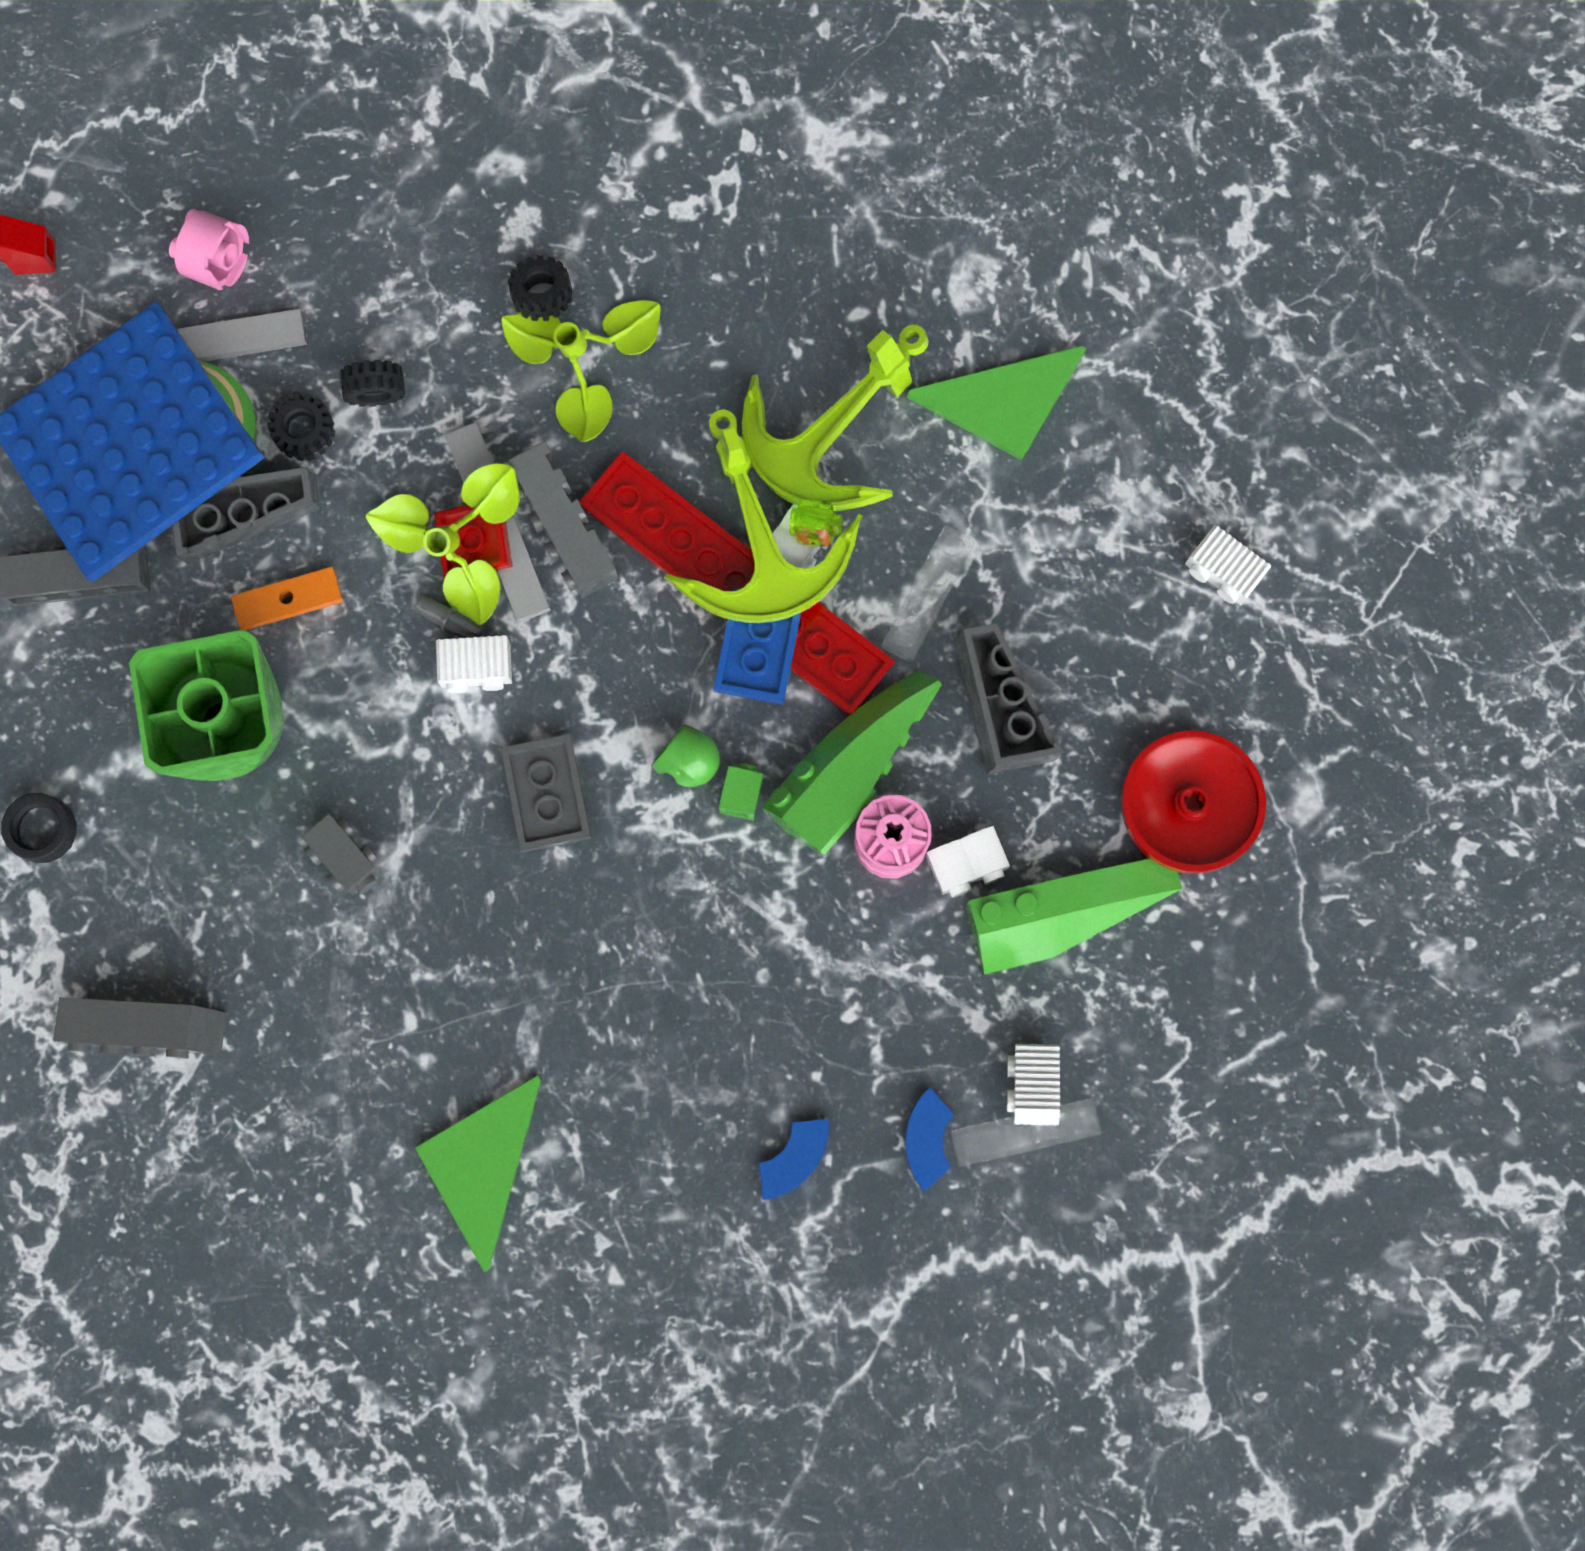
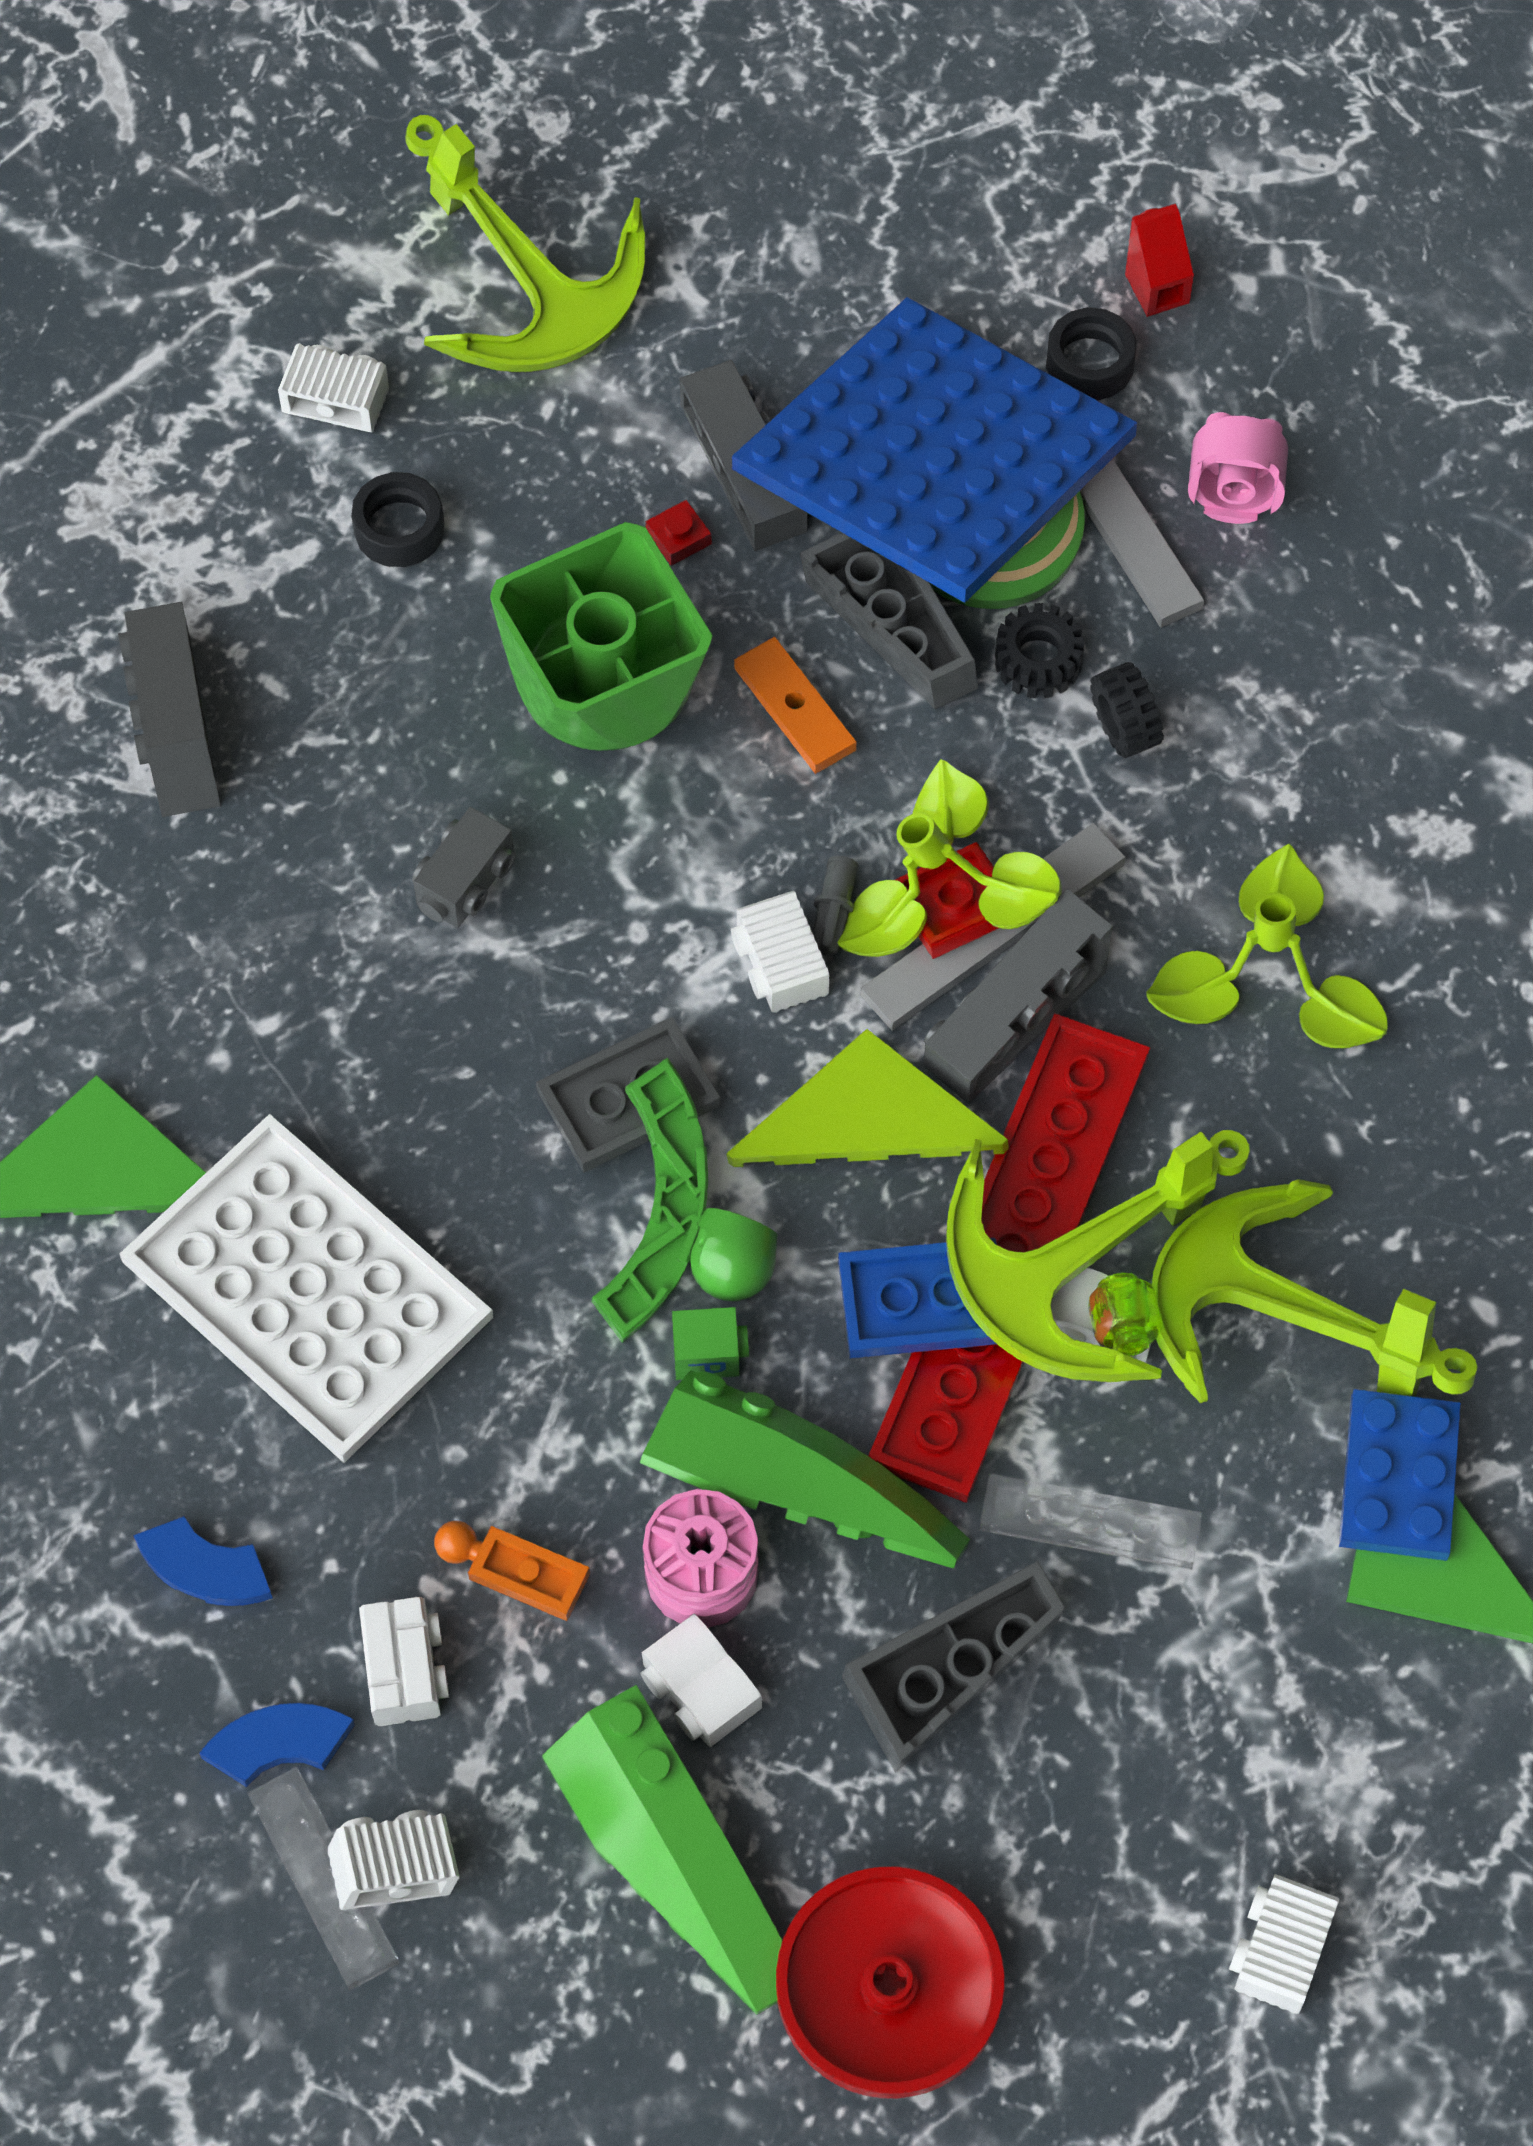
camera: 75 degrees right, 15 degrees down
(67, 294) = (1092, 324): none -> black tyre
(118, 637) = (679, 532): none -> red plate
(535, 273) = (1335, 894): black tyre -> none
(608, 641) = (863, 1110): none -> lime tile
(618, 1042) = (307, 1287): none -> white plate
(637, 783) = (677, 1206): none -> bright green tile
(857, 957) = (515, 1567): none -> orange plate
(901, 1045) = (401, 1661): none -> white brick
(957, 399) = (1400, 1475): none -> blue plate

